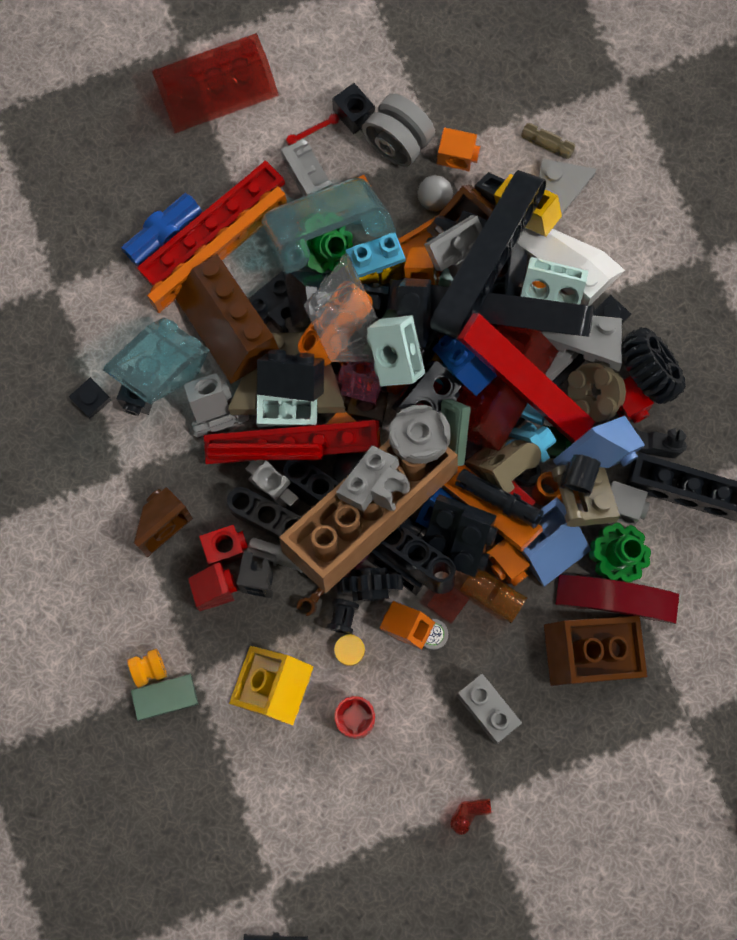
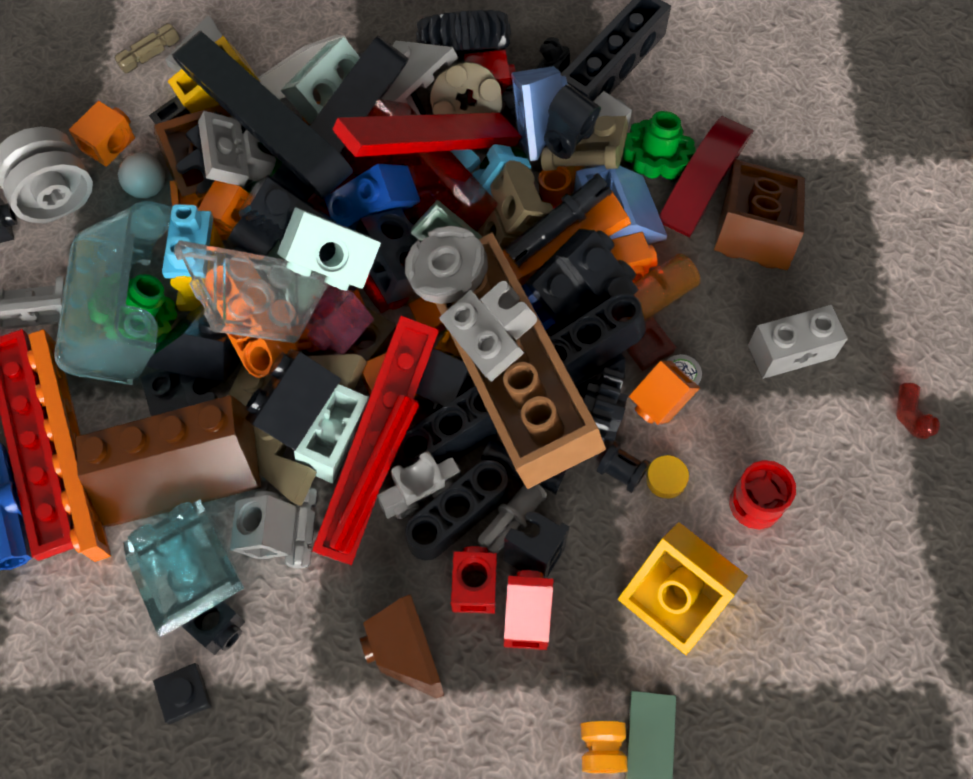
camera: 70 degrees left, 10 degrees down
(313, 600) = (585, 496): reddish brown hand -> none

